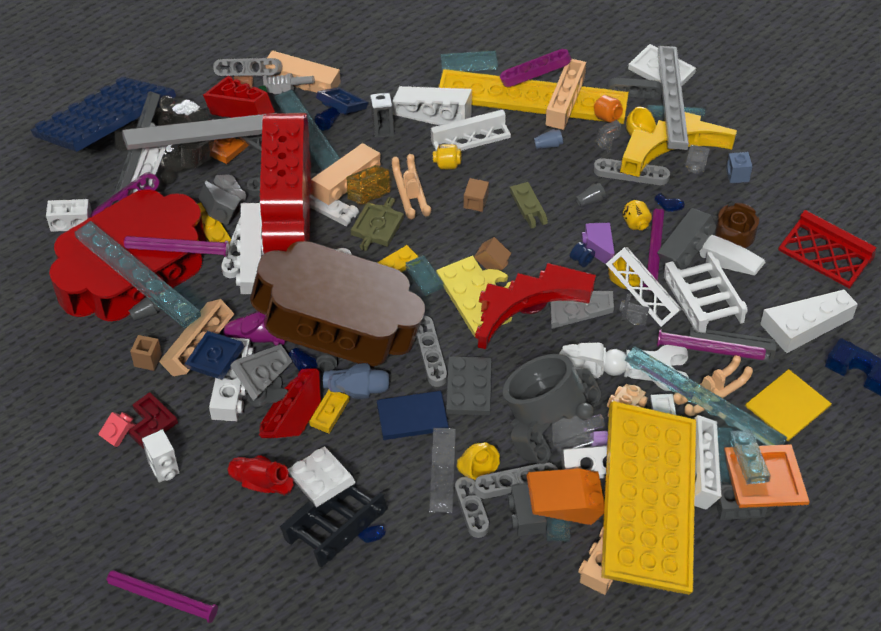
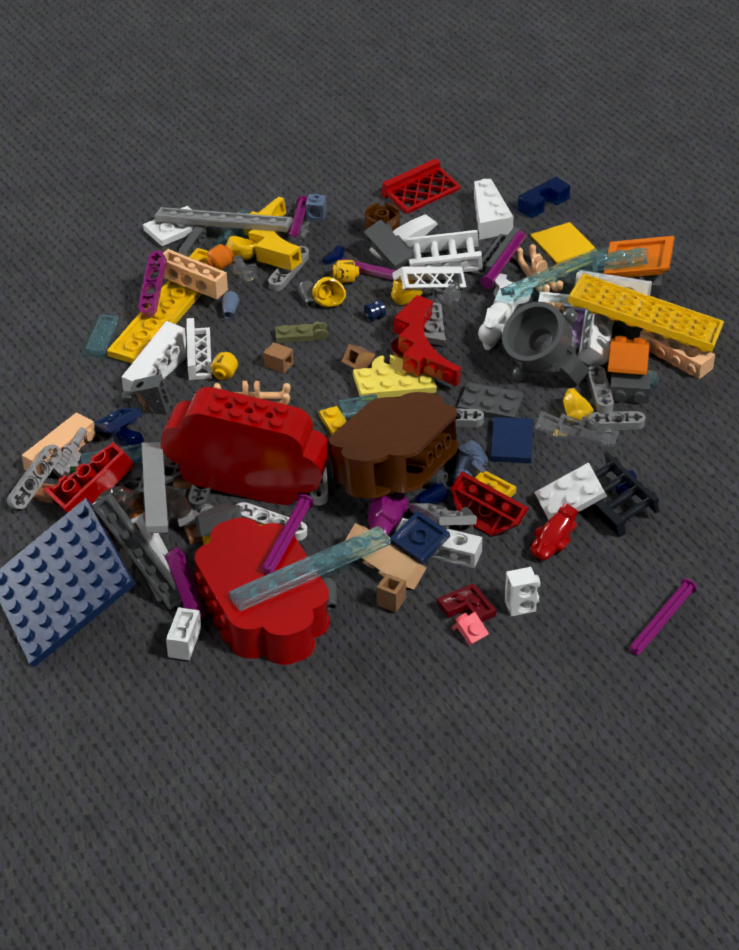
camera: 75 degrees left, 10 degrees down
(249, 246) = (279, 497): white wedge -> none
(593, 208) = (329, 292): none -> yellow hair
(599, 238) = (364, 294): medium lavender slope -> none
(700, 154) = (299, 216): none -> magenta axle

